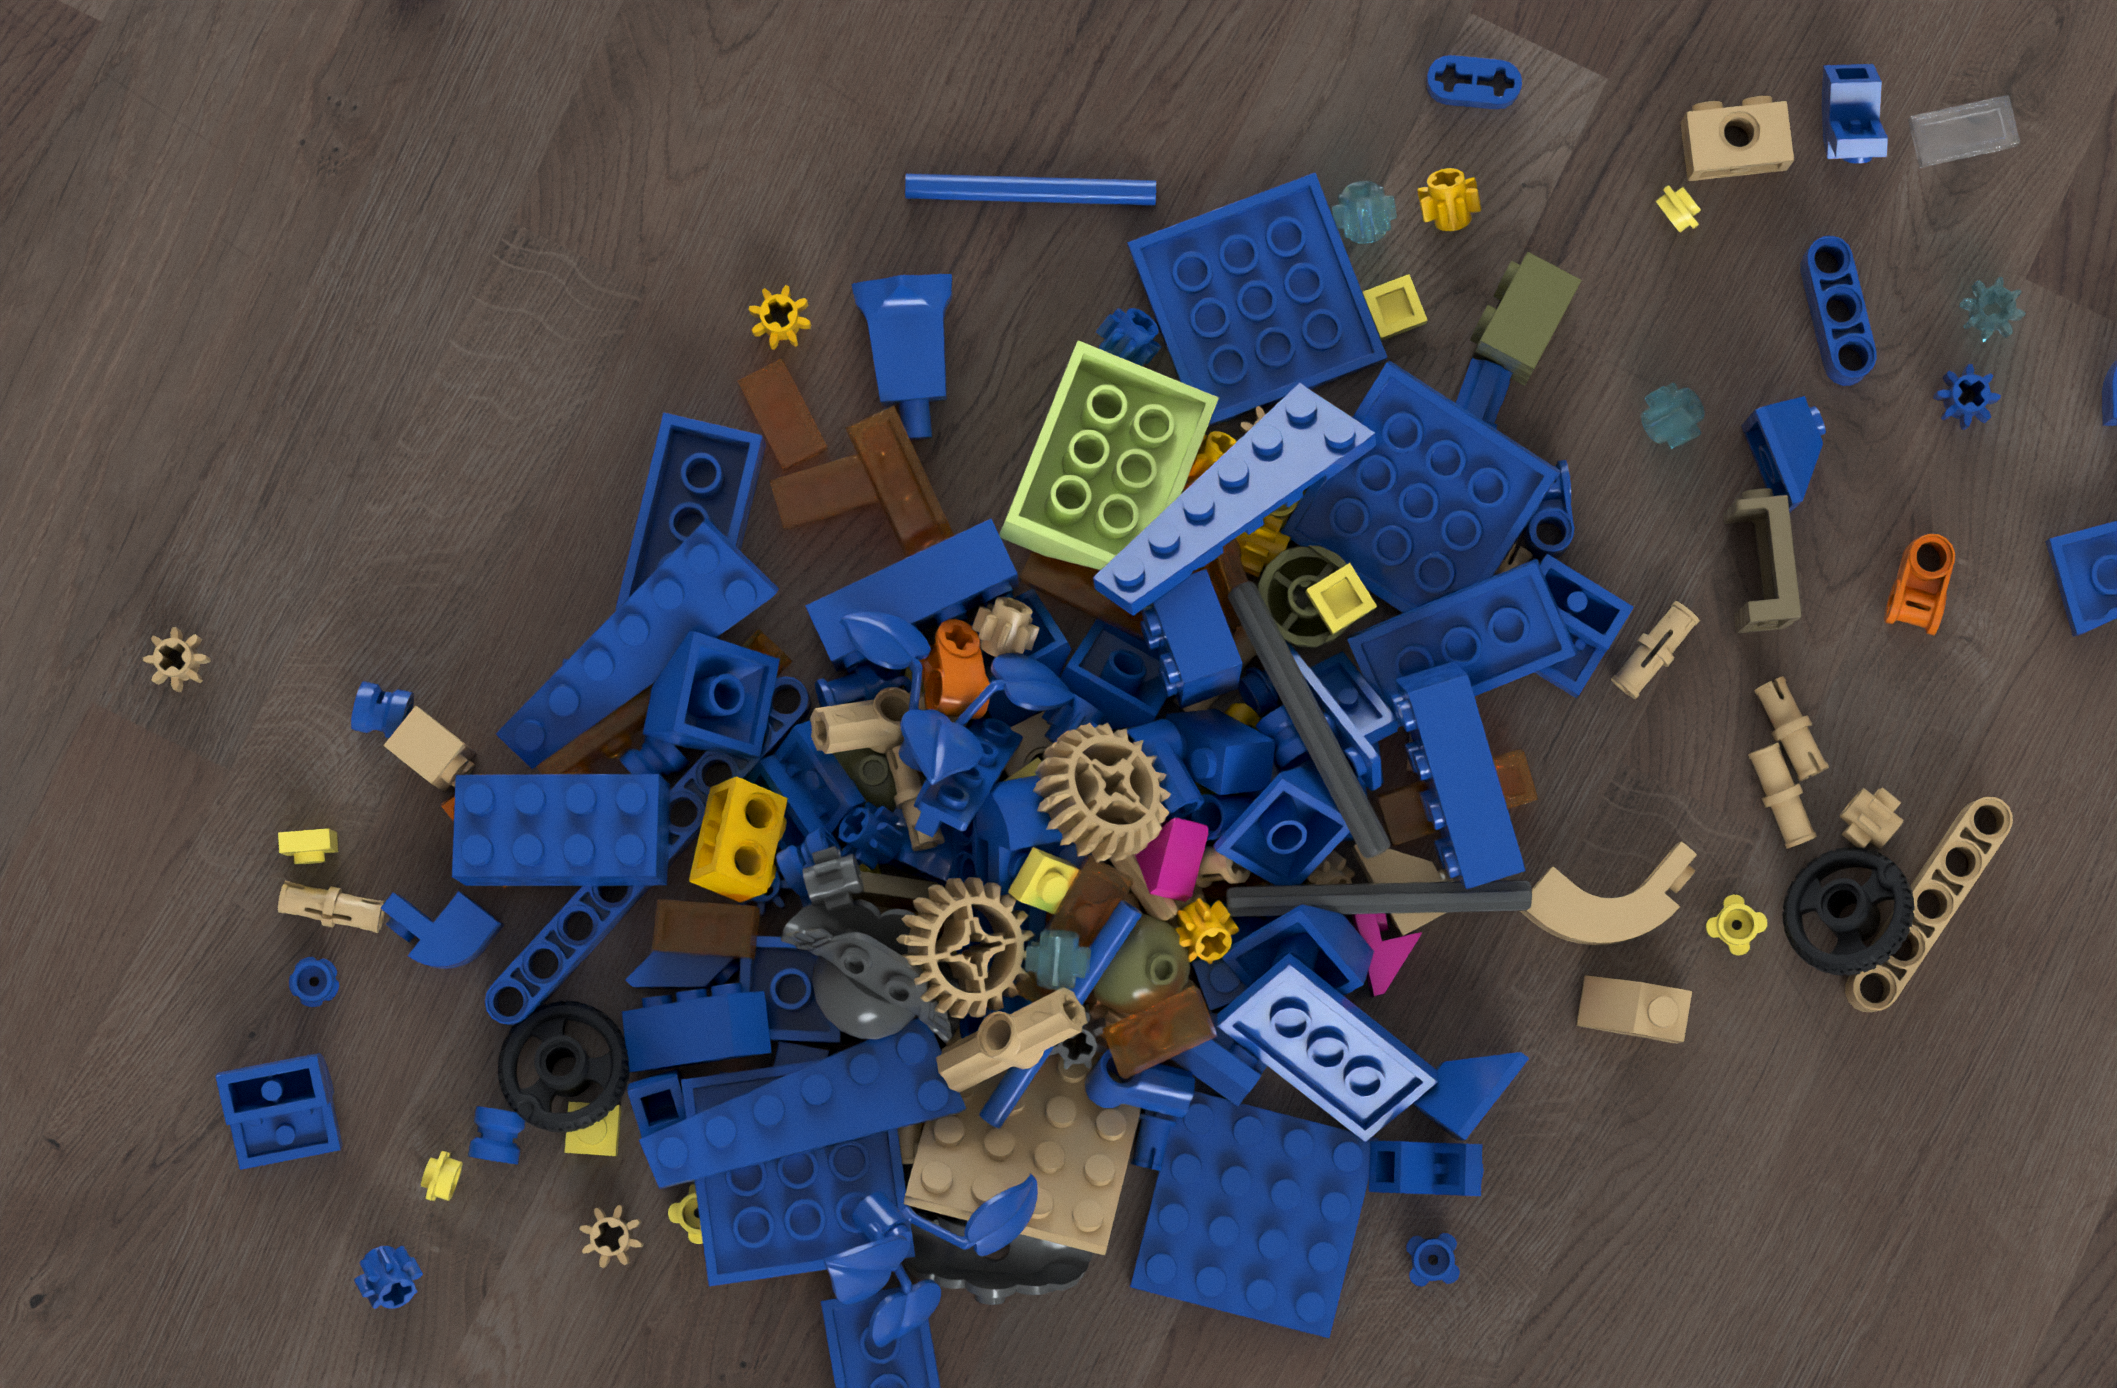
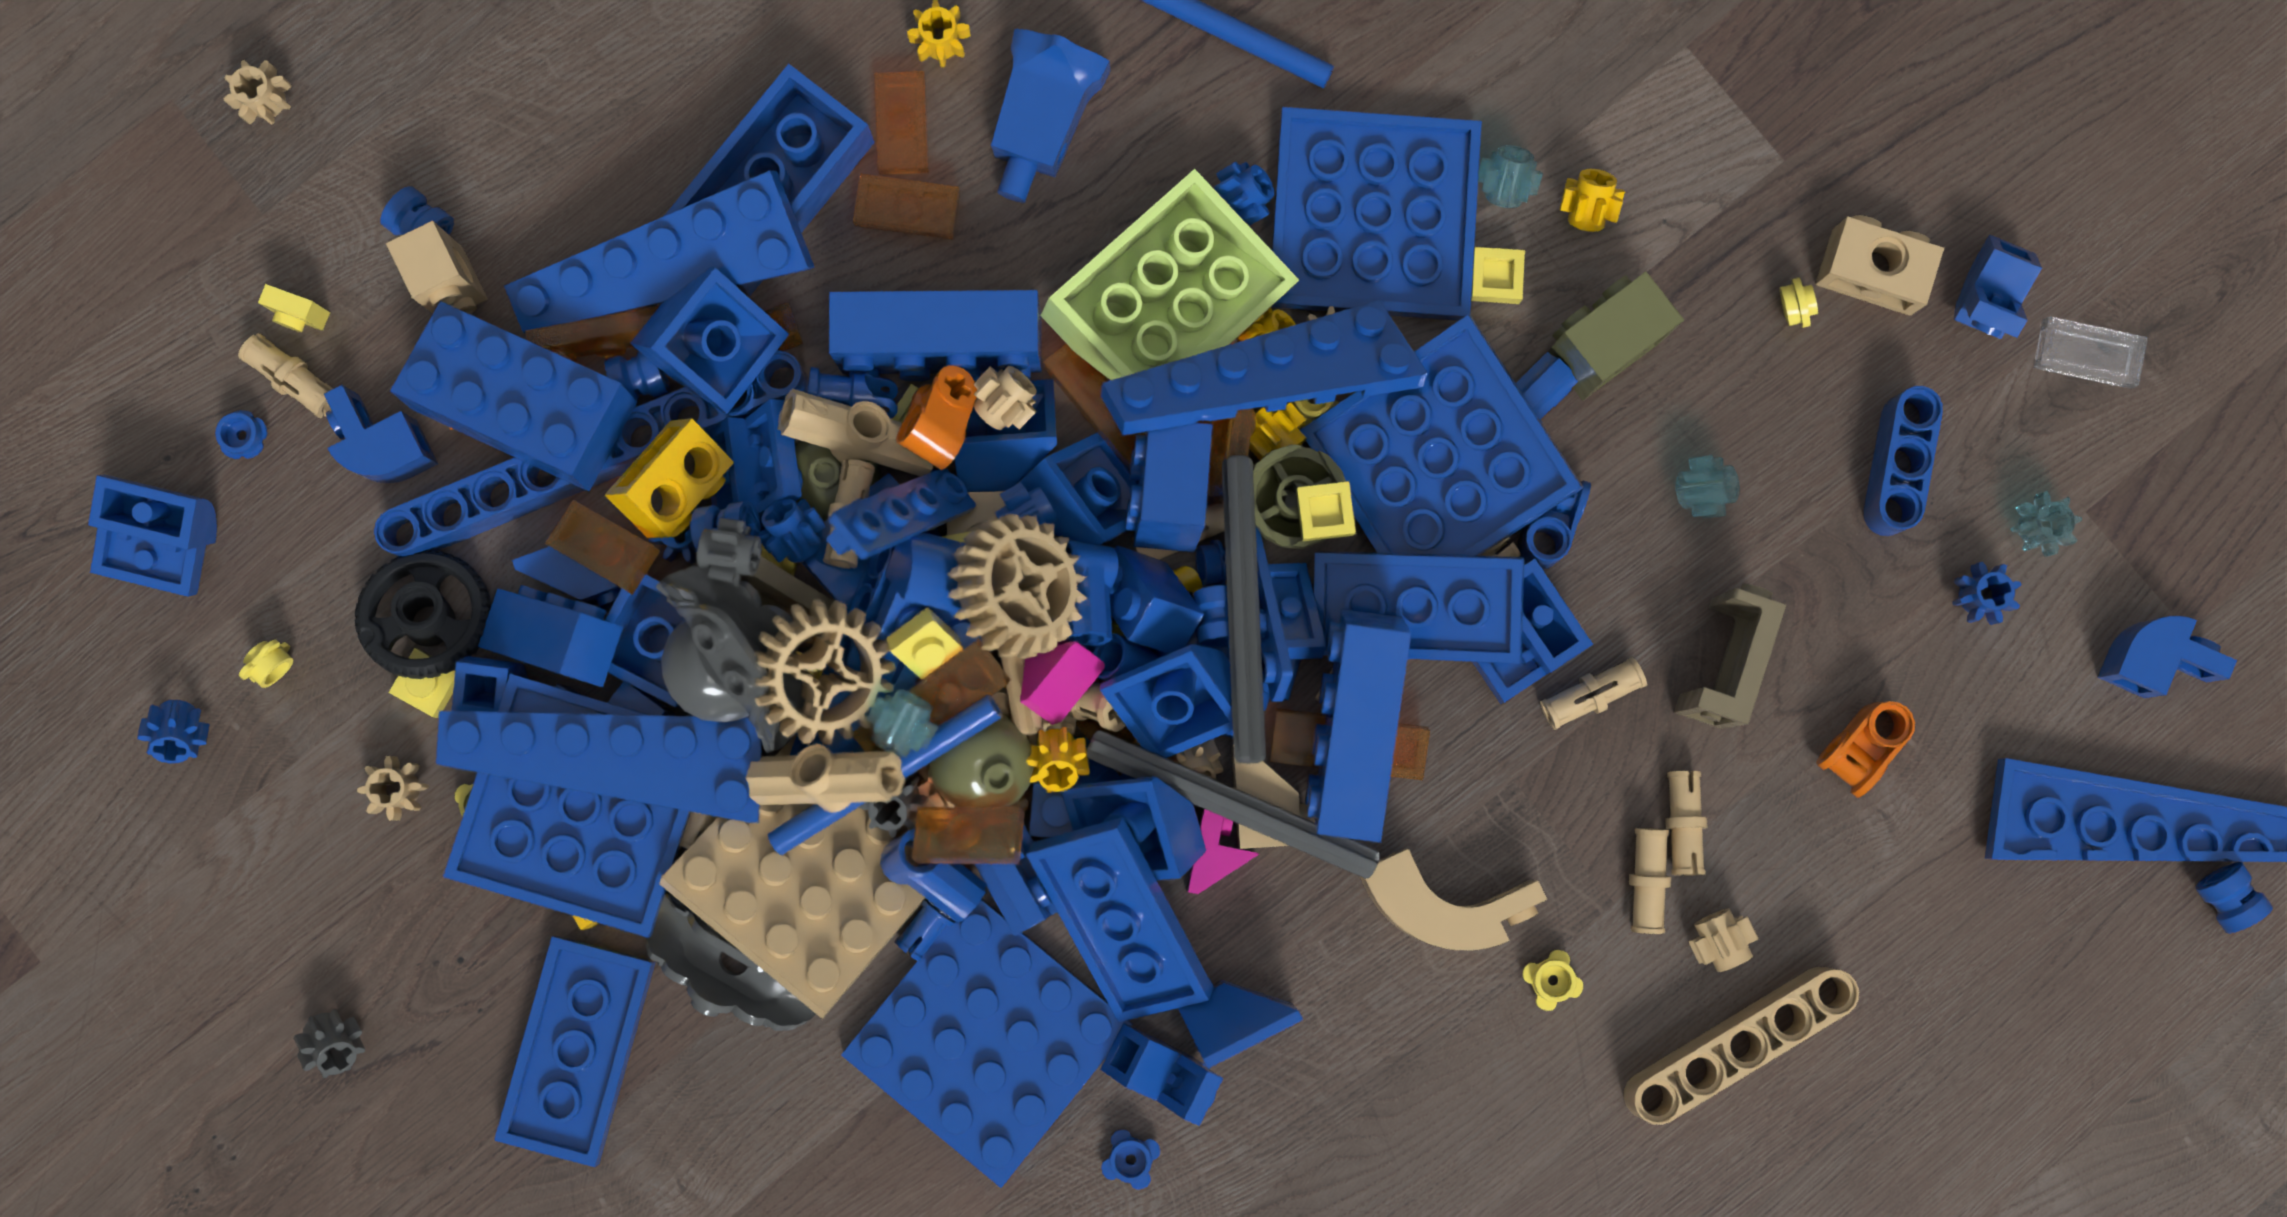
camera: 20 degrees right, 0 degrees up
(497, 1134) = (335, 647): blue wheel -> none
(867, 1268) = (578, 934): blue plant -> none
(899, 481) = (975, 221): clear orange plate -> none
(930, 738) = (881, 464): blue plant -> none
(1475, 70) = (1662, 97): blue beam -> none
(1634, 1008) = (1423, 1014): tan slope -> none
(1786, 446) = (1800, 559): blue slope -> none
(1850, 953) = (1648, 1058): black wheel -> none

